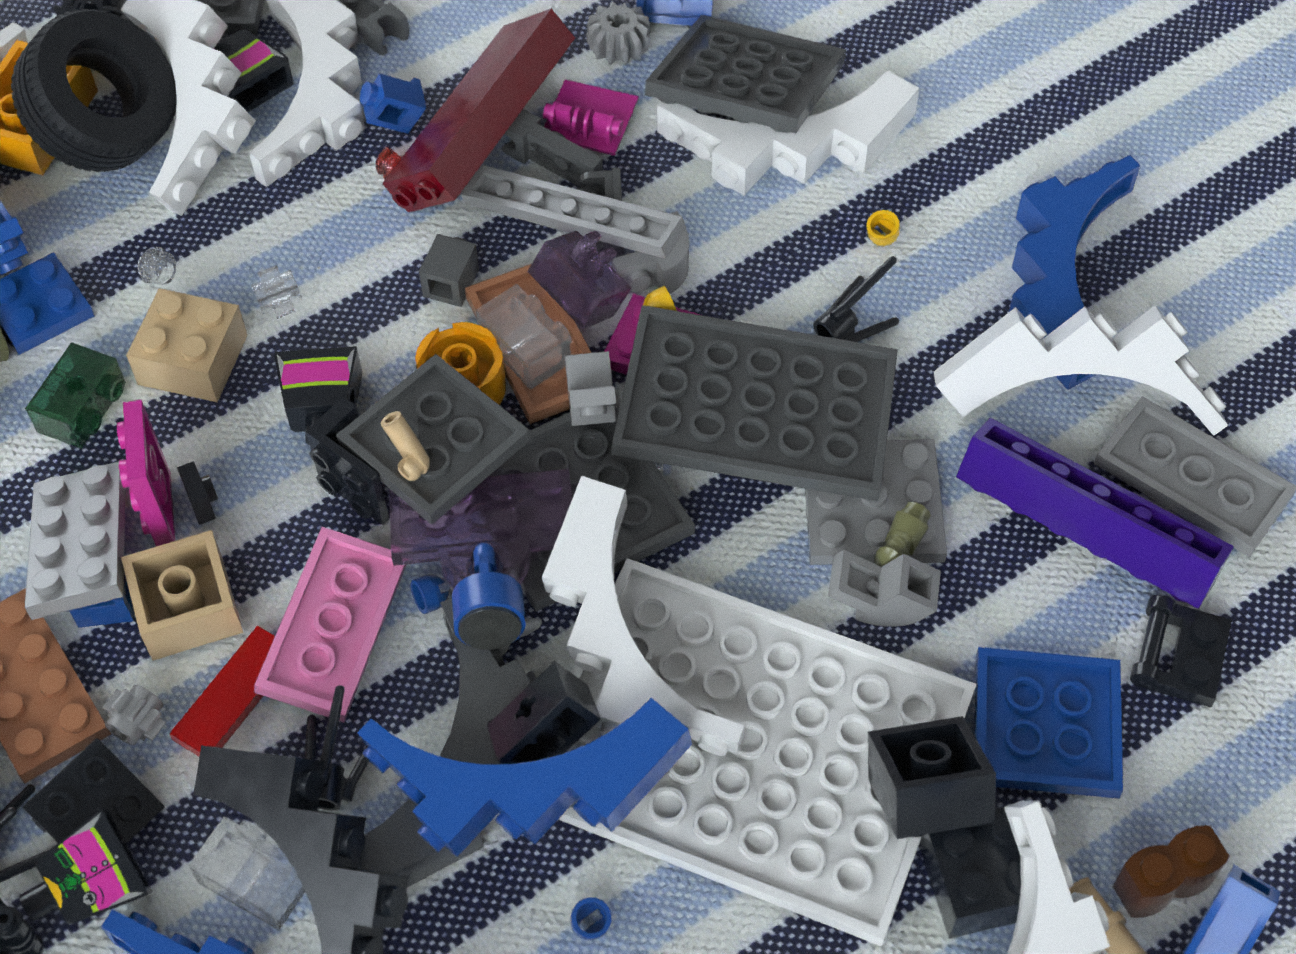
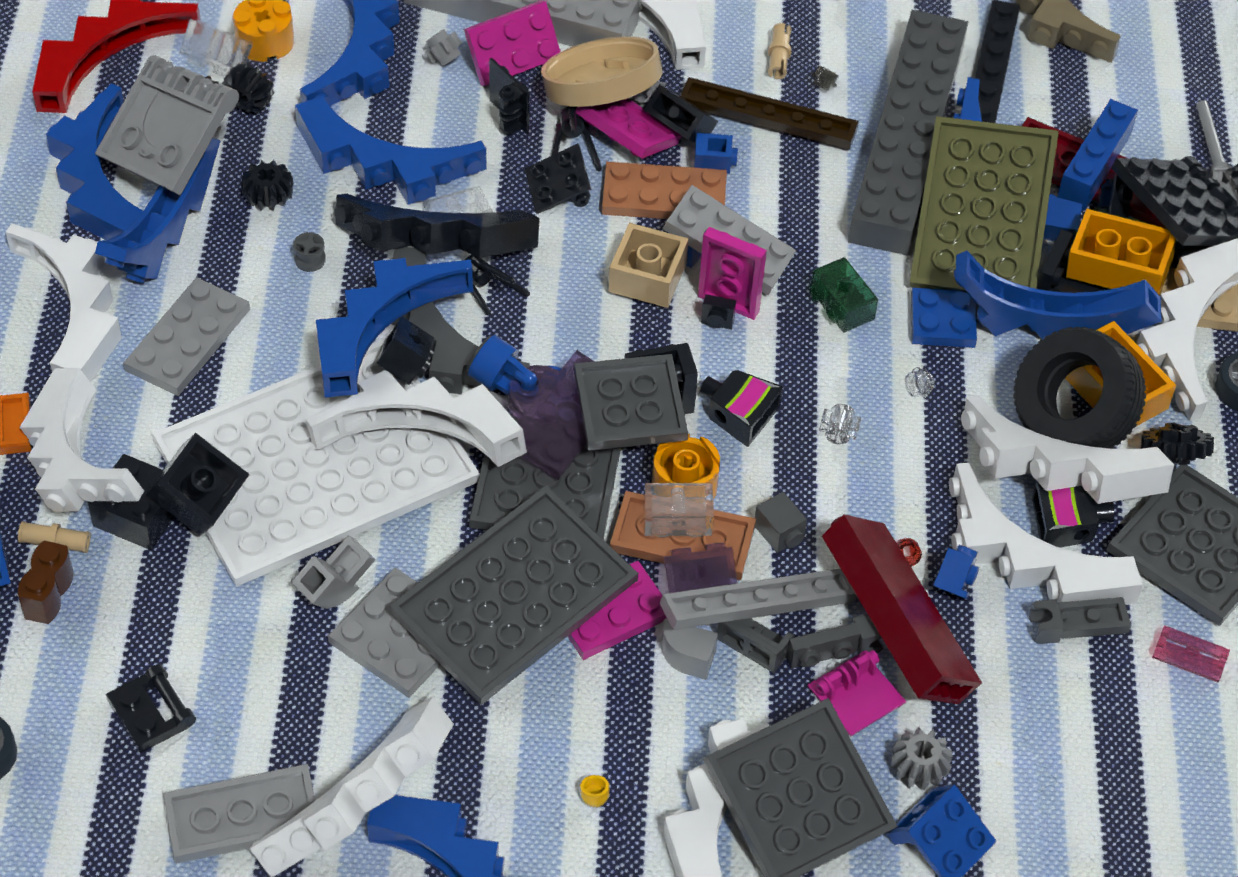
camera: 125 degrees right, 5 degrees down
(86, 873) = (516, 155): torso -> none
(134, 714) = (595, 215): light grey gear -> none
(187, 345) = (834, 360): tan brick -> none
(226, 699) = (573, 269): red tile -> none
(330, 624) = (569, 318): bright pink plate -> none
(415, 458) = (616, 371): tan arm -> none
(584, 909) = (288, 331): blue hinge -> none
(590, 388) = (609, 516): light grey brick -> none
(660, 299) = (644, 602): yellow hinge -> none
(840, 320) = (543, 705): black plant -> none
(904, 534) = (354, 608): olive arm -> none
(1050, 721) = (181, 602): blue plate -> none
(1094, 512) = (271, 718): dark purple brick -> none

